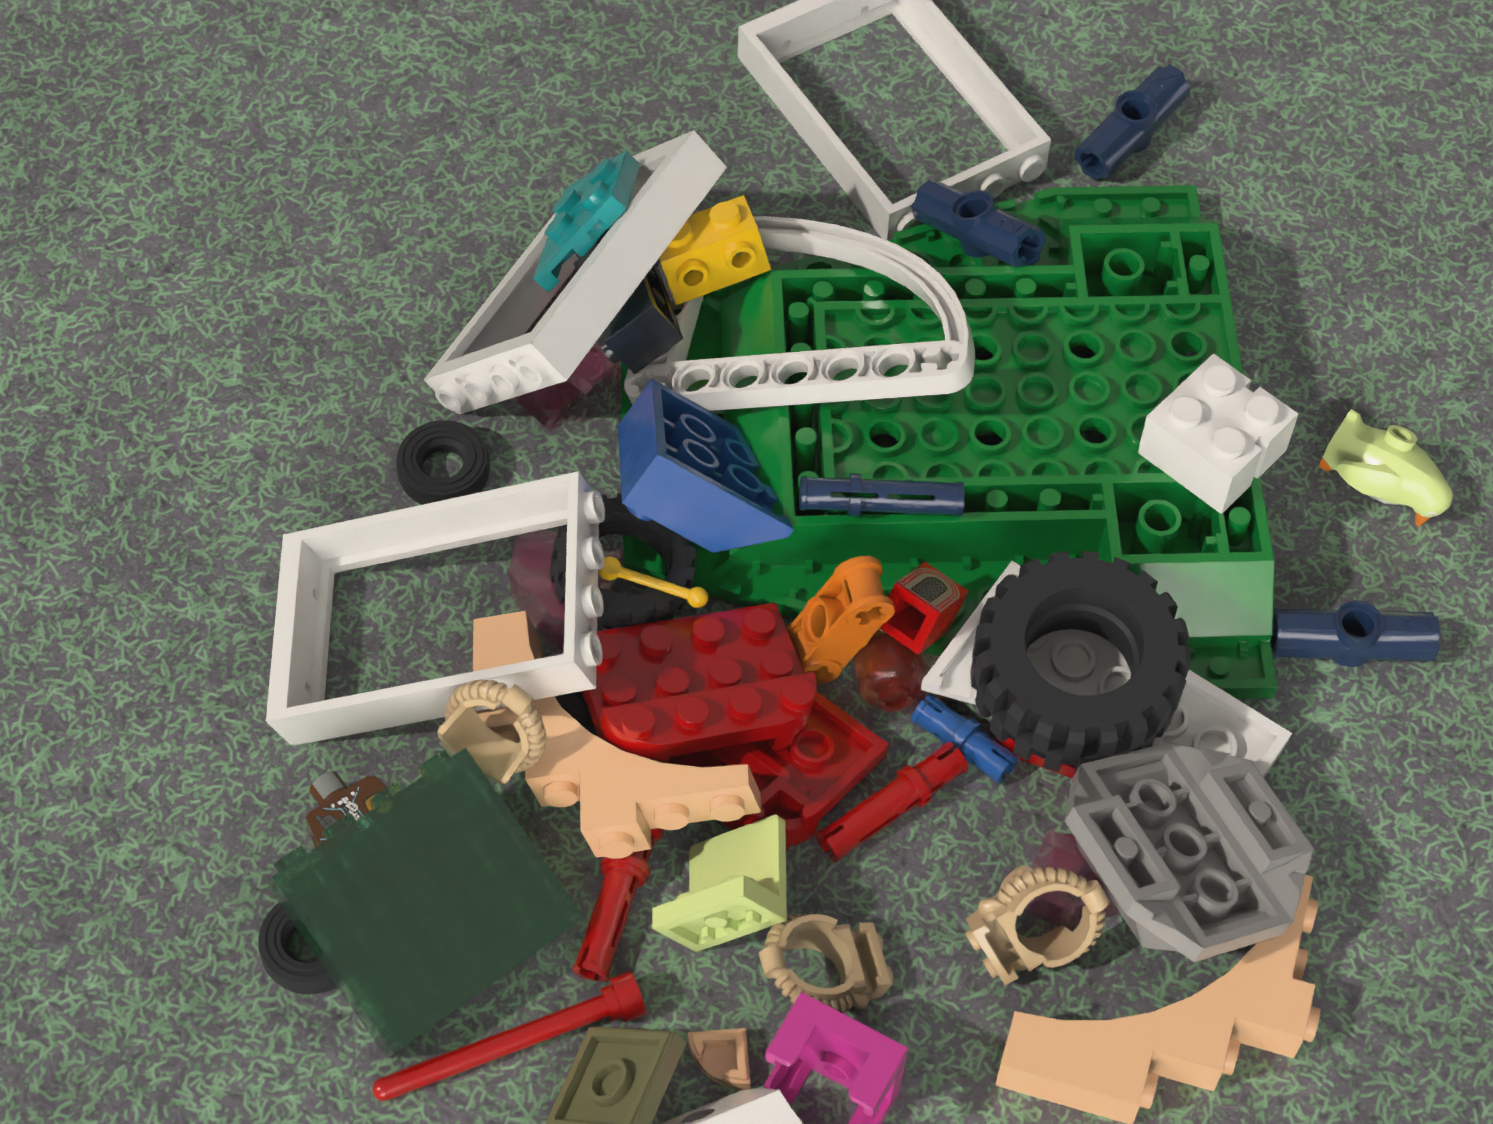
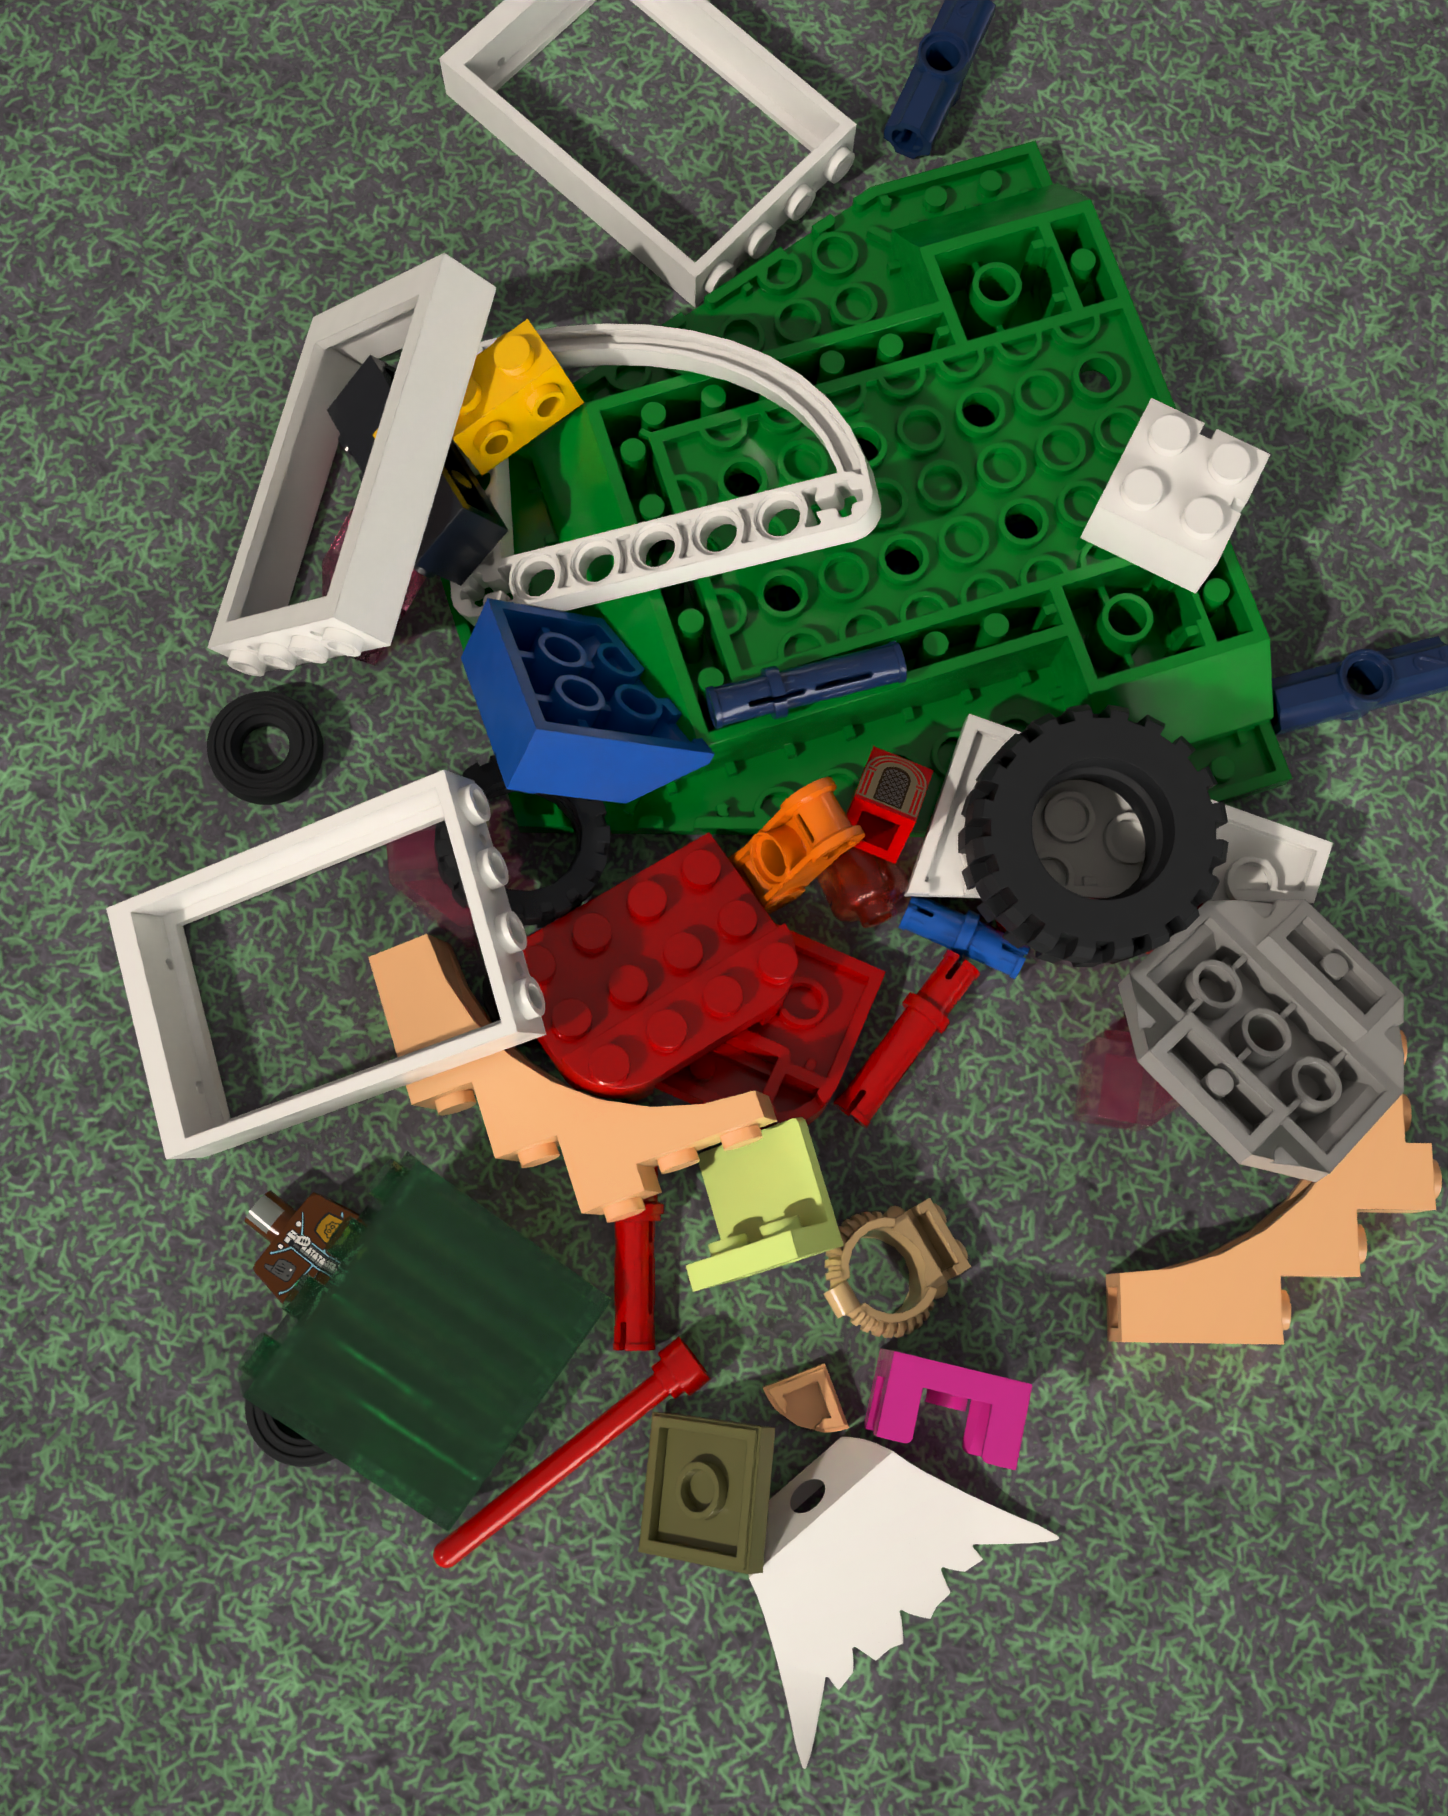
camera: 20 degrees left, 20 degrees up
(493, 753) = (416, 1123): tan piece -> none
(585, 214) = (342, 394): teal wing -> none
(696, 596) = (621, 865): yellow hinge -> none
(978, 224) = (809, 270): dark blue piece -> none
(995, 922) = (1103, 1158): tan piece -> none
(1387, 467) = (1344, 462): yellowish green animal -> none

